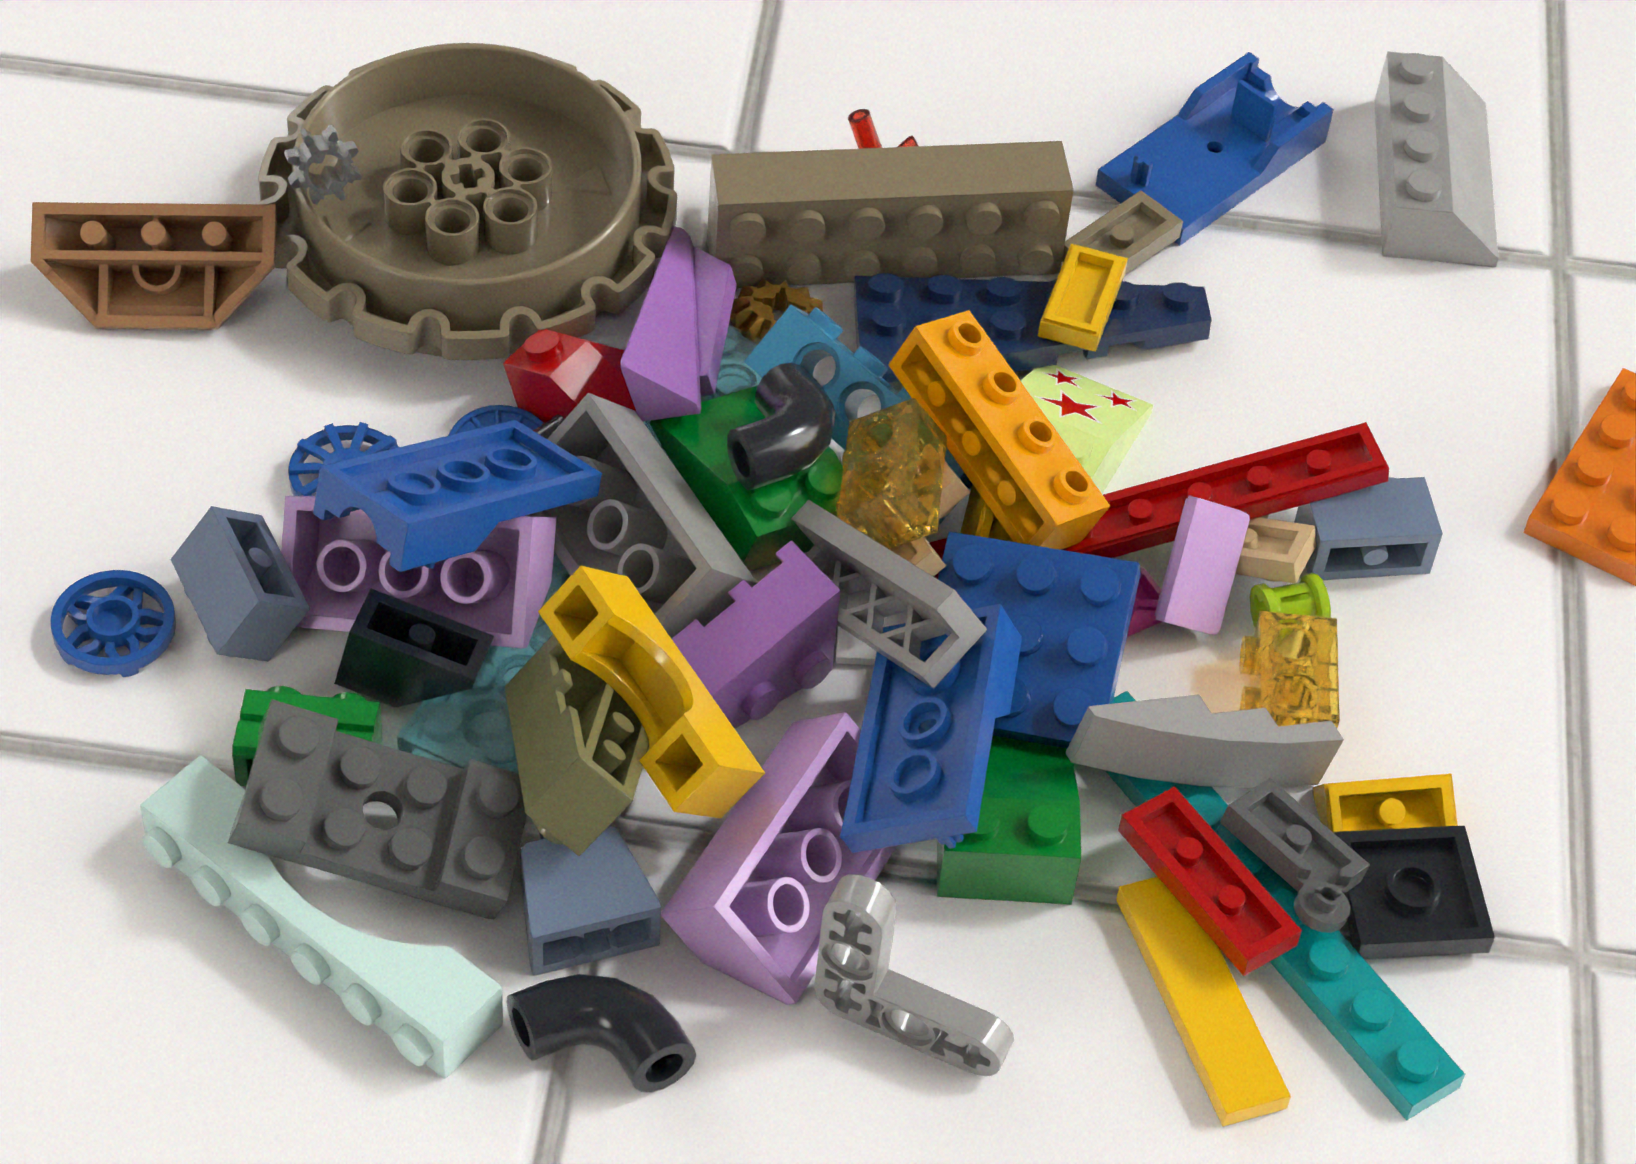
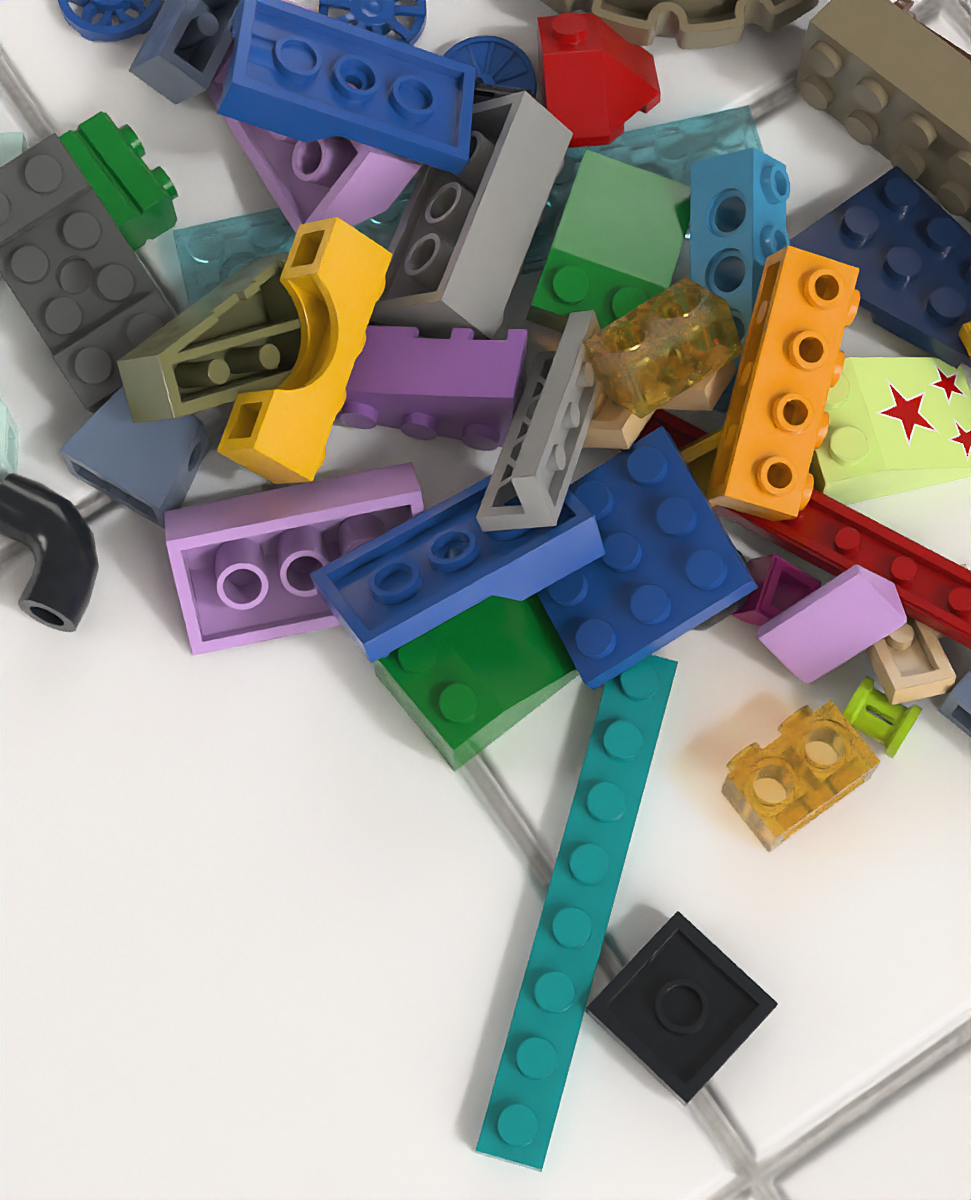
camera: 55 degrees right, 20 degrees up
(409, 653) = (231, 177): black slope -> none
(679, 332) = (685, 96): medium lavender wedge -> none
(755, 305) = (805, 170): pearl gold gear -> none
(791, 435) = (636, 249): black cylinder -> none
(889, 1002) = (226, 686): light grey beam -> none
(1191, 746) = (636, 743): light grey slope -> none
(1204, 1004) = (445, 925): yellow tile -> none
(1209, 881) = (535, 854): red plate -> none
(1298, 851) = (619, 901): dark grey hinge -> none
(1387, 803) = (755, 931): yellow slope -> none

